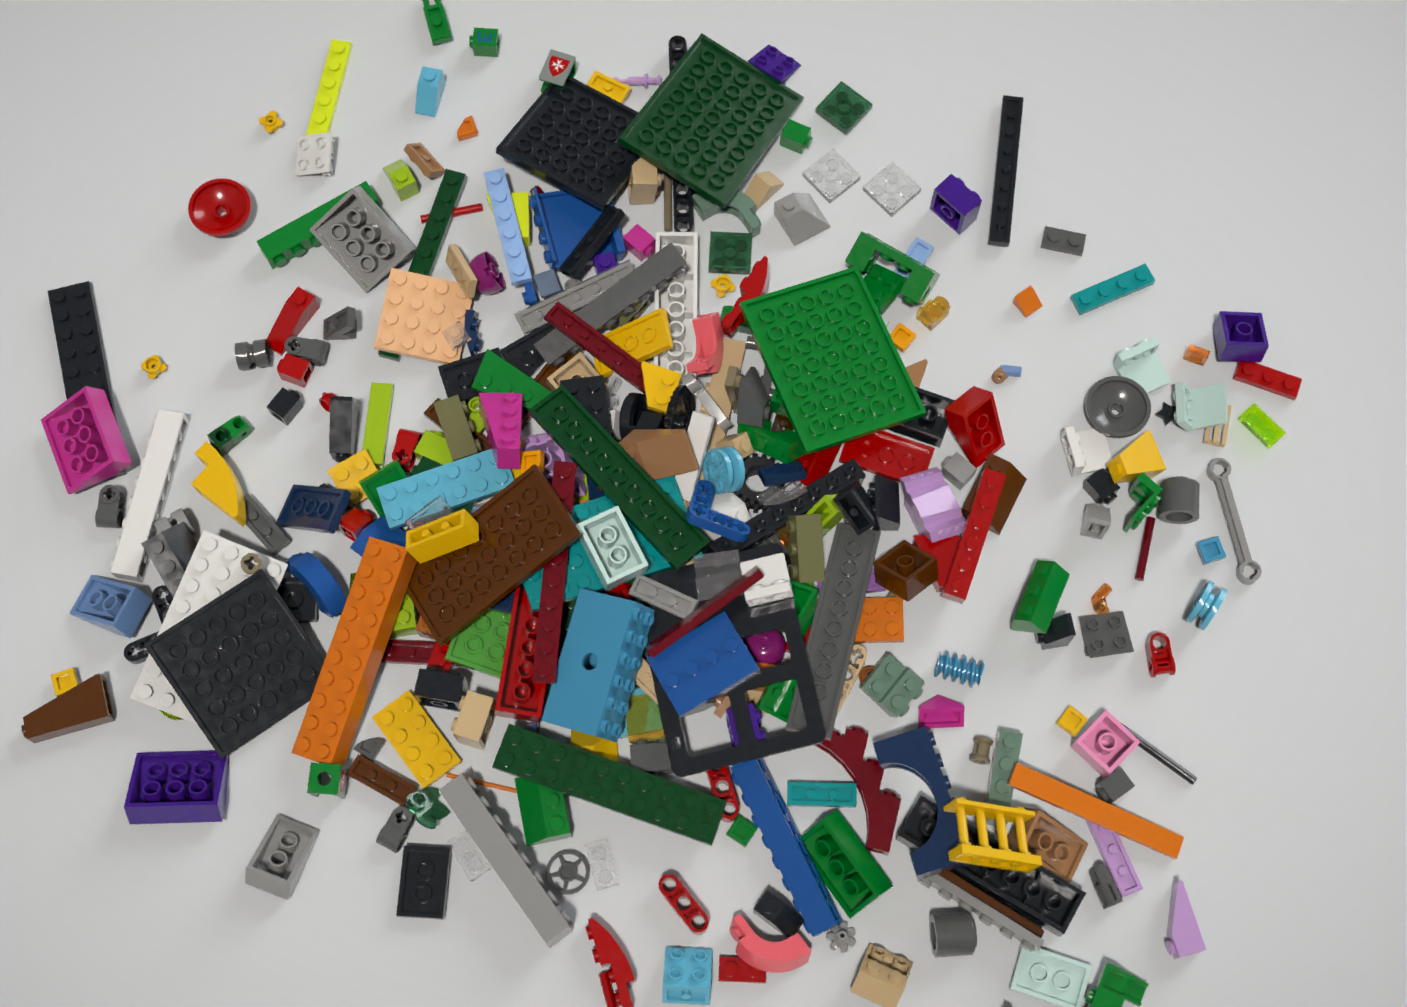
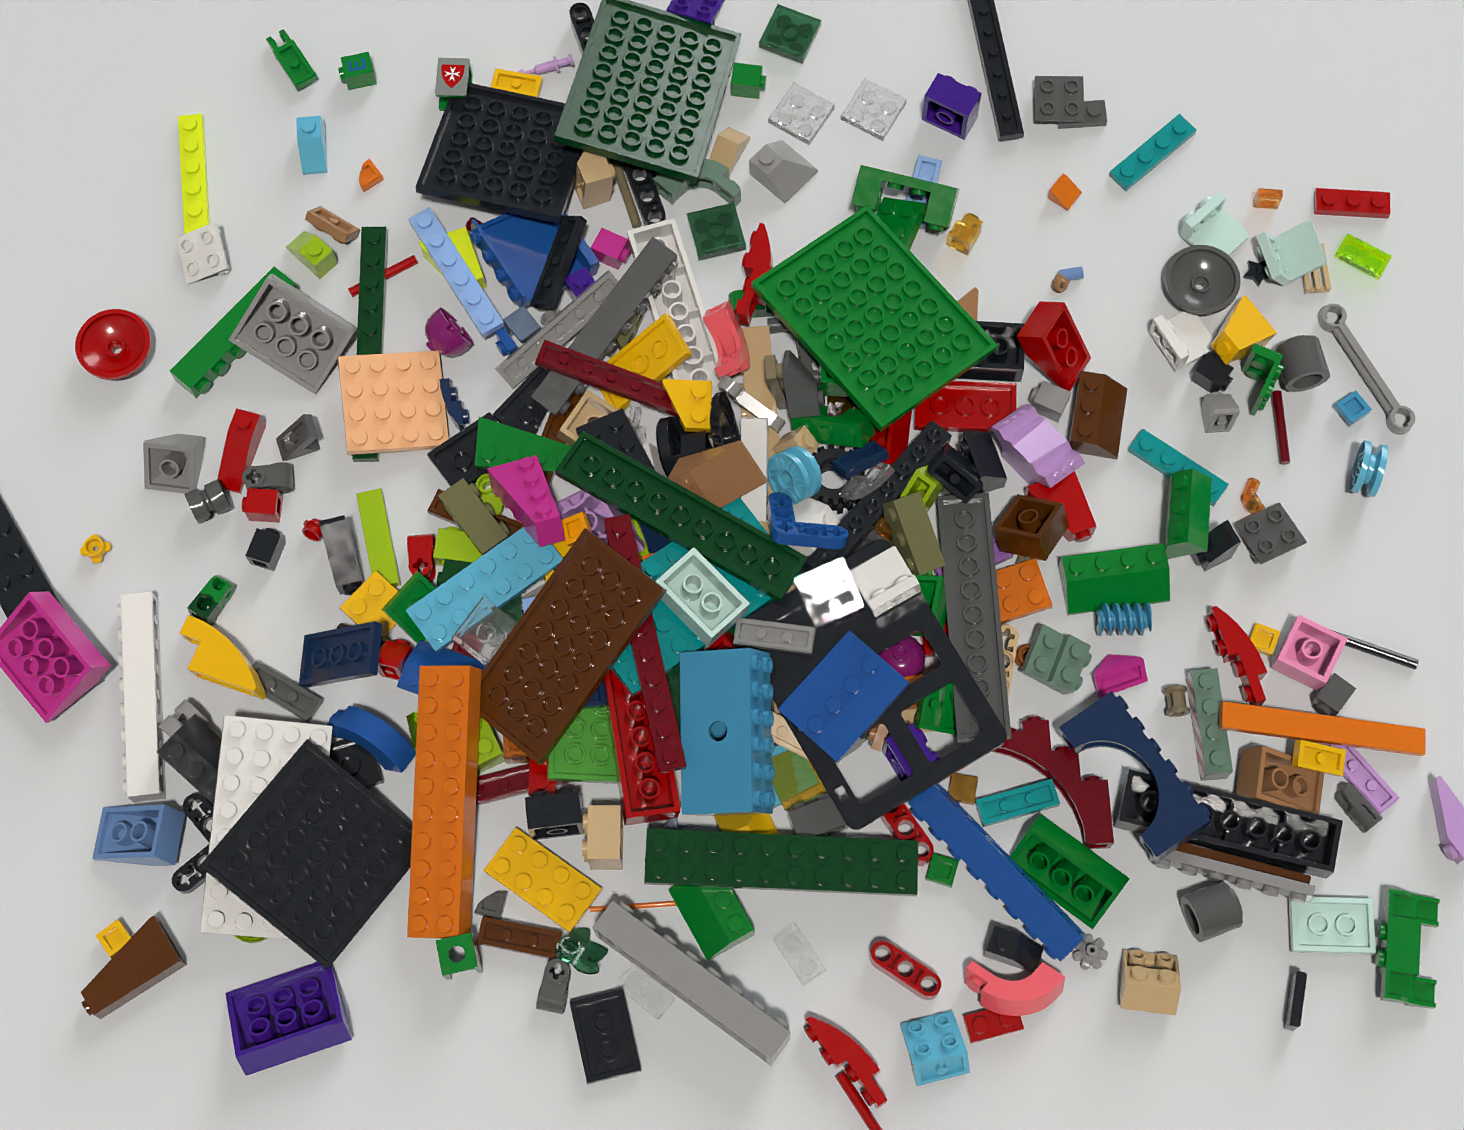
camera: 15 degrees left, 0 degrees up
(110, 512) = (101, 729): dark grey piece -> none
(236, 315) = (173, 462): none -> light grey slope
(245, 567) = (297, 730): dark tan bush -> none
(273, 126) = (140, 236): yellow plate -> none
(281, 857) = (433, 1058): light grey slope -> none
(442, 536) = (504, 640): yellow brick -> none
(456, 336) = (438, 412): clear tile -> none
(461, 270) = (419, 337): tan tile -> none
(567, 872) = (763, 975): dark grey wheel -> none
(704, 611) = (828, 636): dark red tile -> none
(722, 279) = (719, 263): yellow plate -> none
(781, 769) = (963, 788): none -> pearl gold tile
(902, 337) = (940, 269): light orange plate -> none
(964, 632) = (1115, 577): none -> green slope
(973, 536) = (1094, 466): red brick -> none
(984, 854) = (1222, 809): yellow fence -> none
(1042, 549) = (1169, 460): none -> teal plate
(1046, 719) = (1236, 646): none -> red slope
(1048, 223) = (1059, 98): none -> dark grey hinge
(1084, 834) = (1318, 758): none -> yellow plate
(1160, 660) = (1336, 544): red piece -> none
(1240, 336) = (1310, 164): dark purple brick -> none

